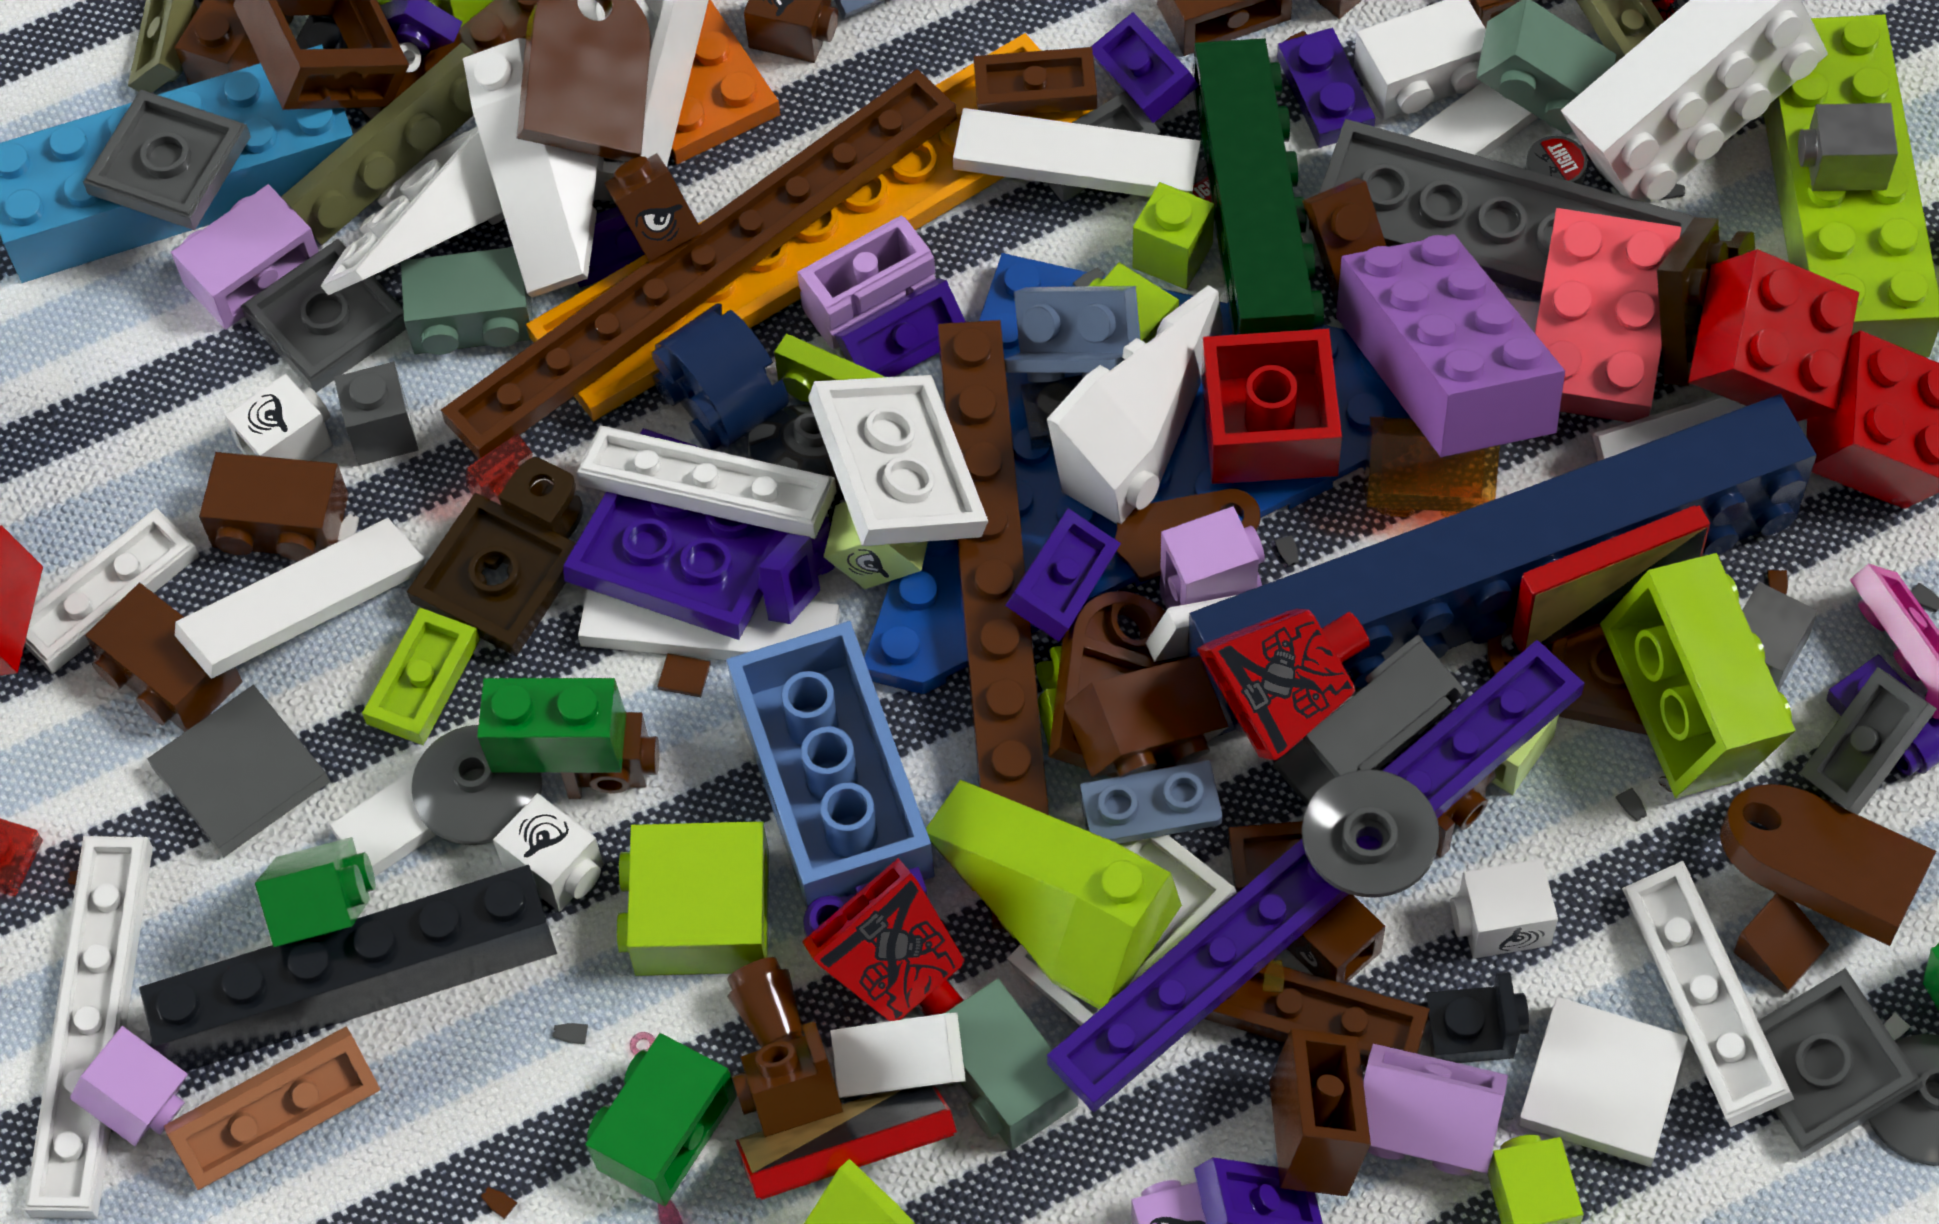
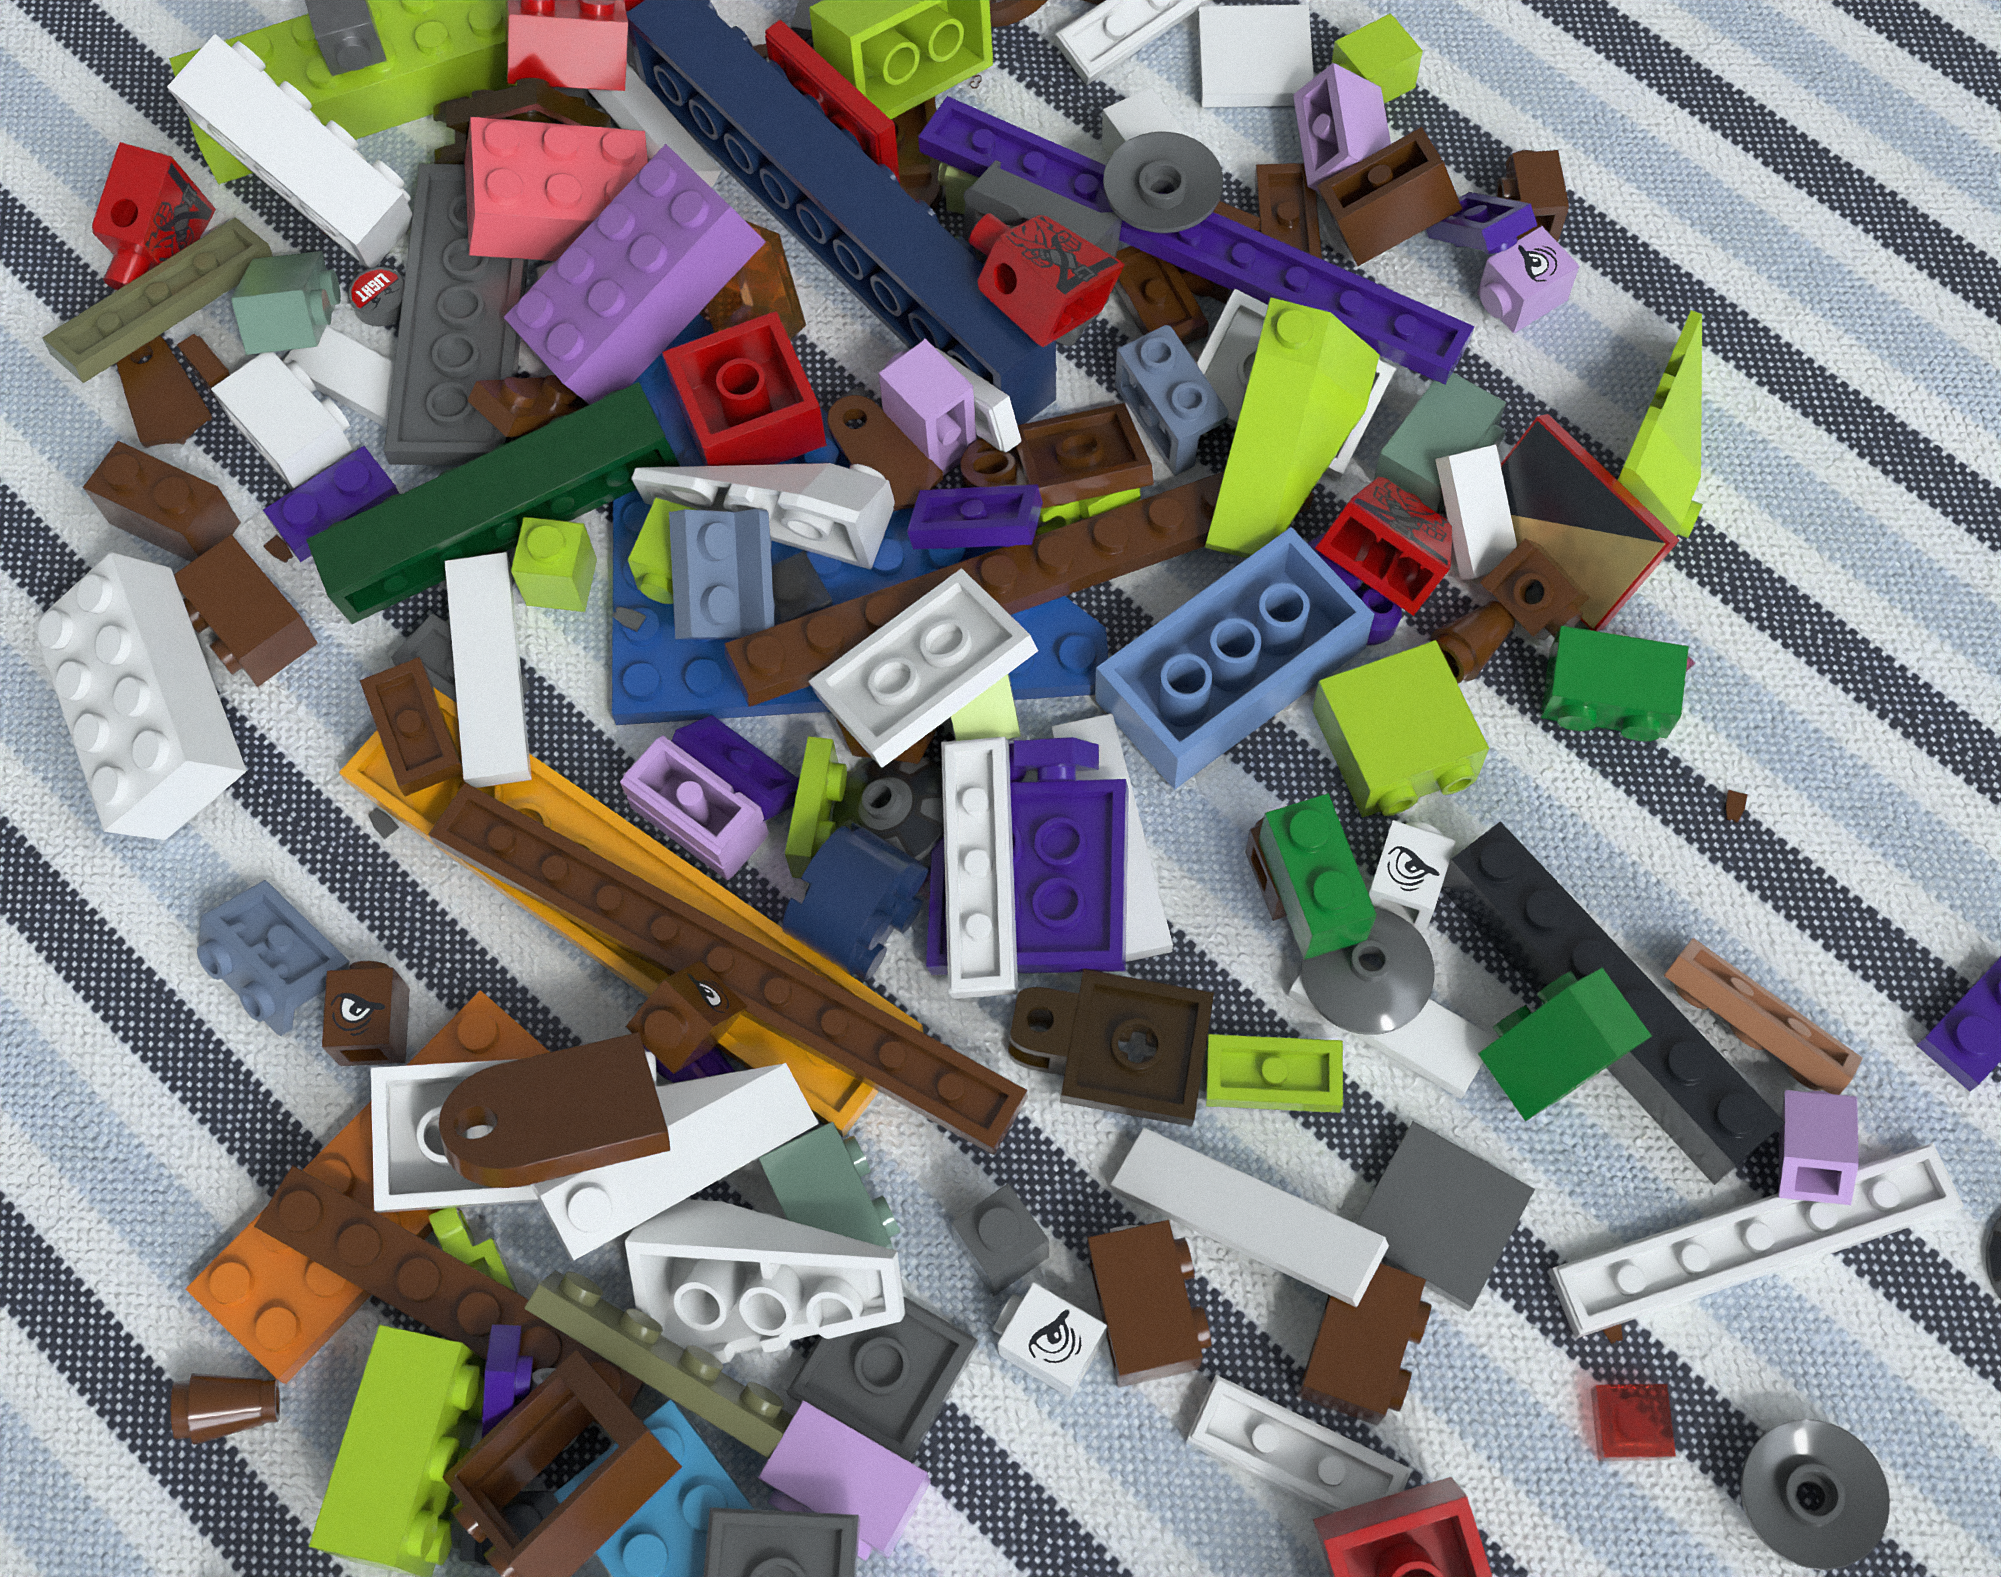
camera: 110 degrees left, 5 degrees up
(495, 469) = (1034, 1077): clear red plate -> none
(571, 1032) = (1556, 807): dark grey piece -> none
(637, 1037) = (1539, 752): clear pink piece -> none
(684, 675) = (1167, 845): reddish brown window -> none
(1143, 67) = (356, 649): dark purple plate -> none
(1146, 717) = (1093, 411): reddish brown brick -> none
(1477, 1022) = (1242, 137): black bracket -> none
(1632, 804) = (1003, 99): dark grey piece -> none

